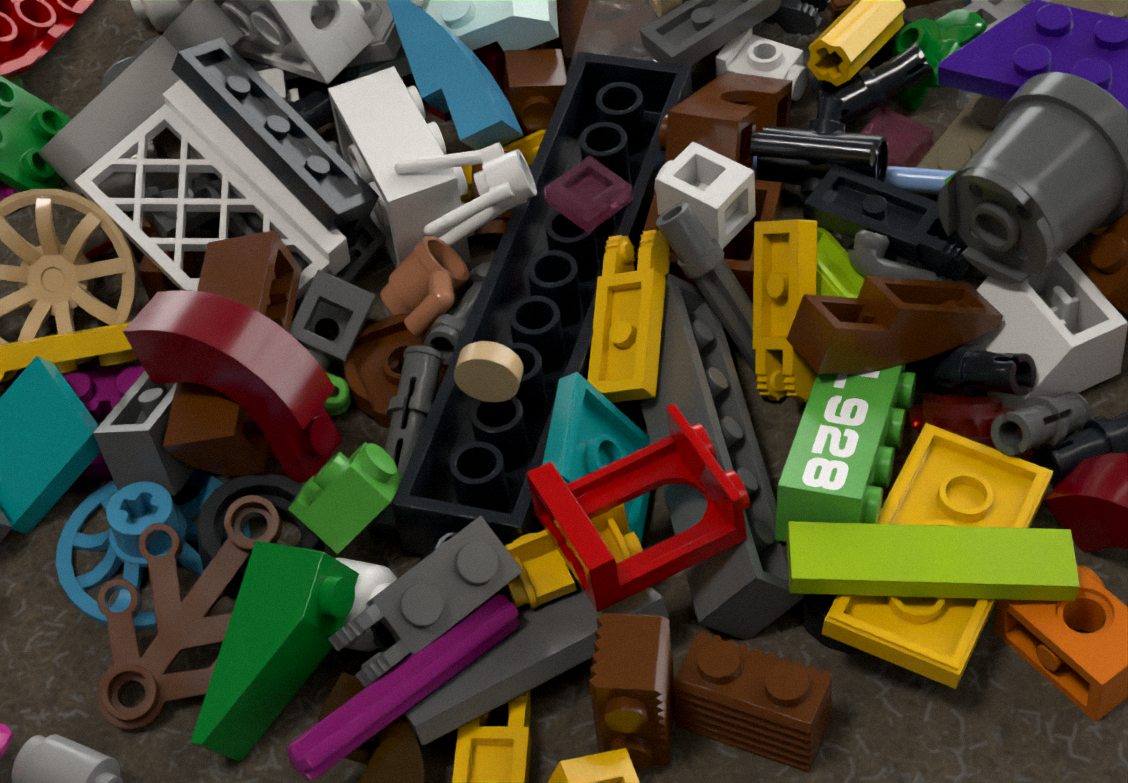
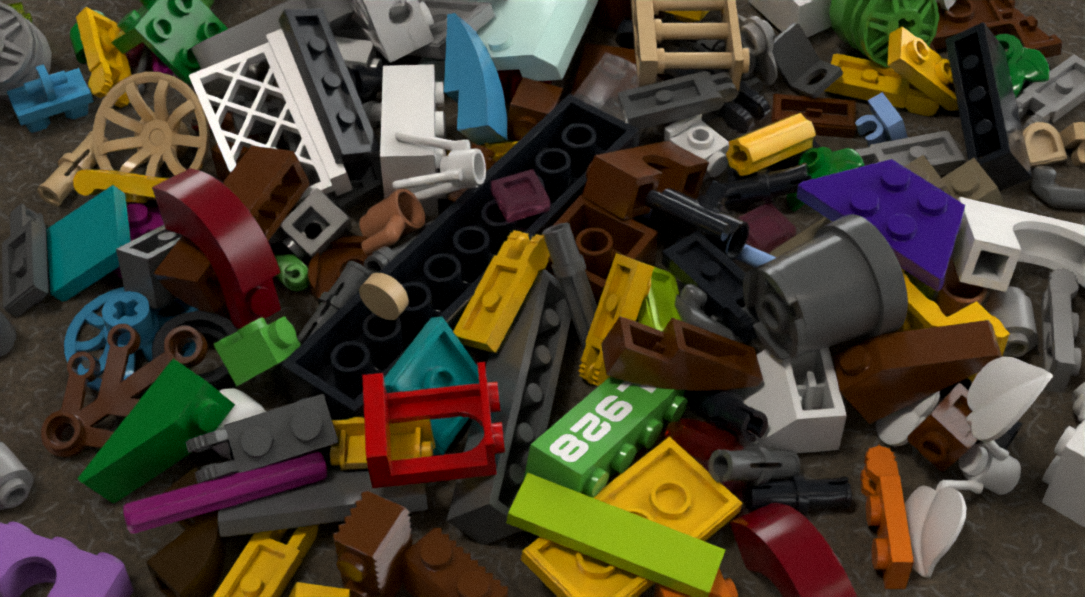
camera: 15 degrees right, 0 degrees up
(713, 186) = (596, 223): white brick -> none

